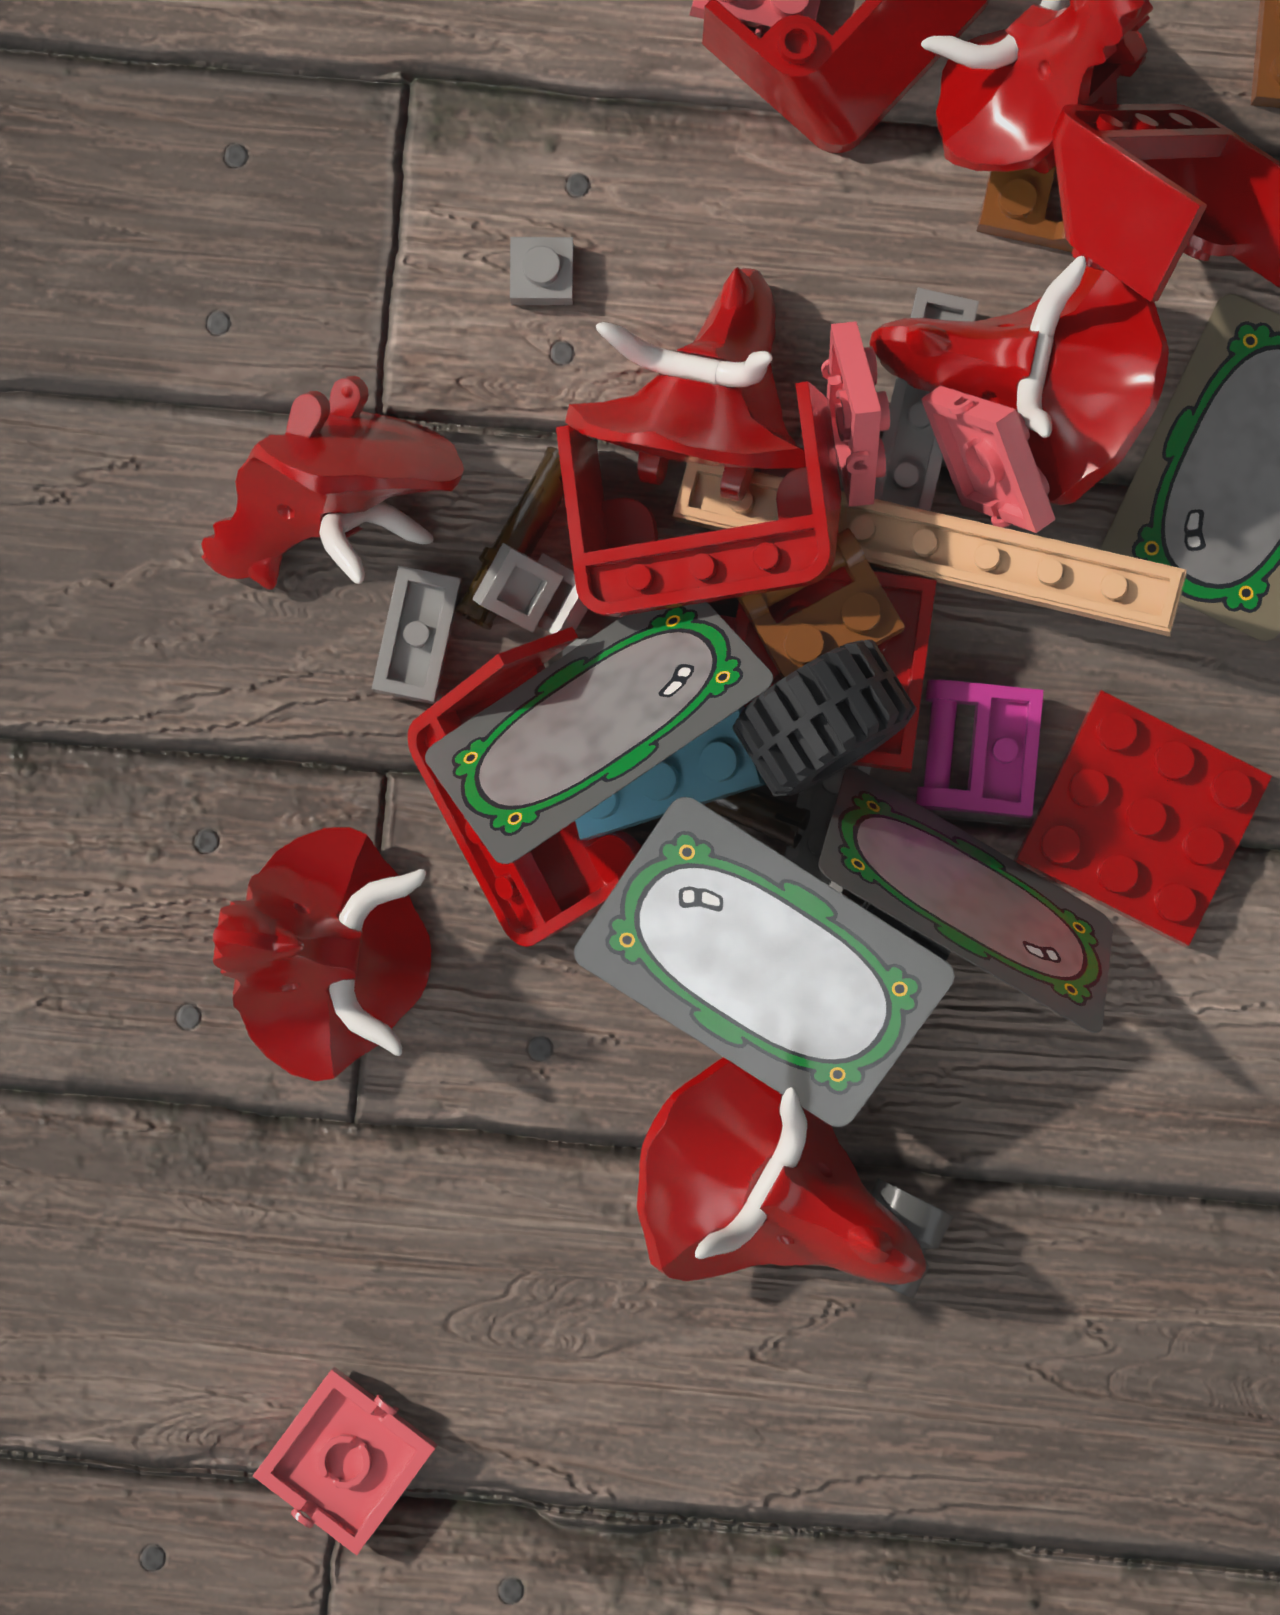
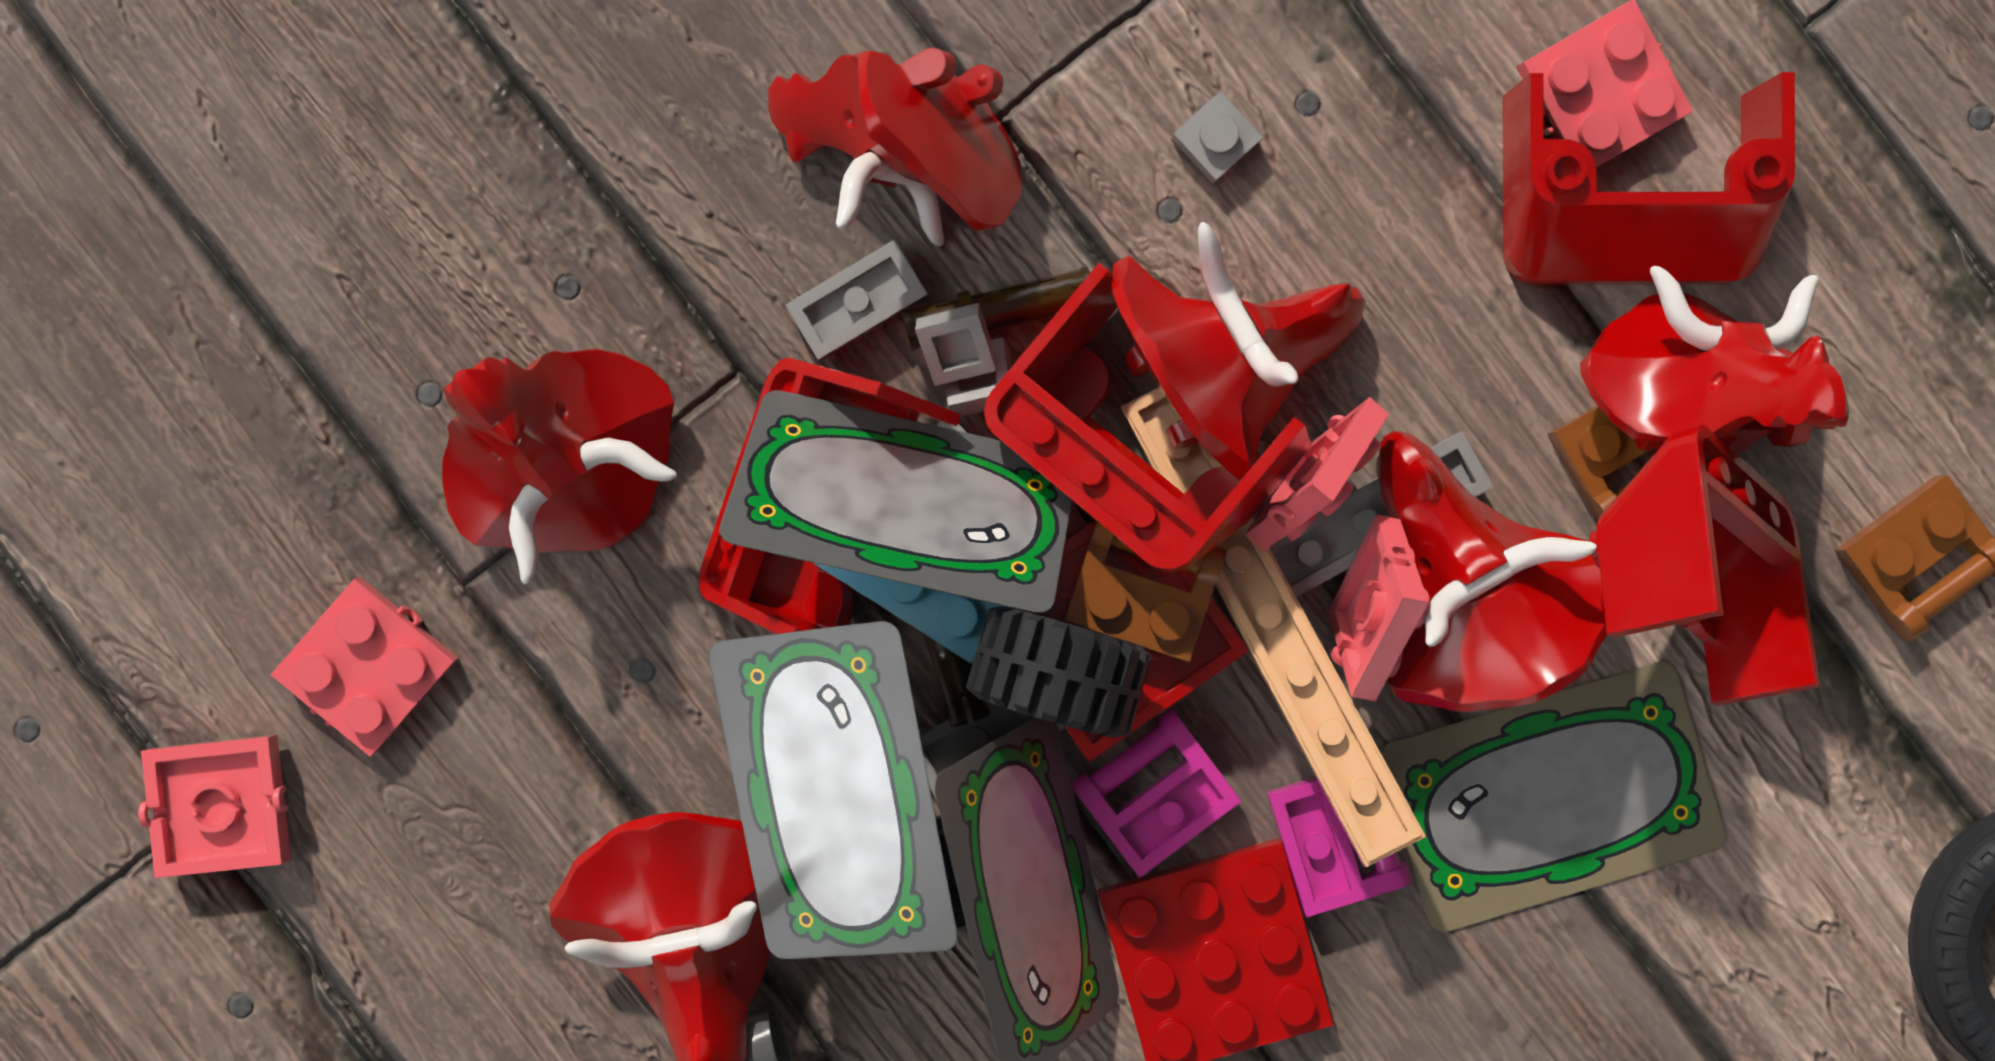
camera: 50 degrees right, 5 degrees up
(345, 1250) = (364, 665): none -> coral plate
(1135, 667) = (1322, 854): none -> dark pink plate

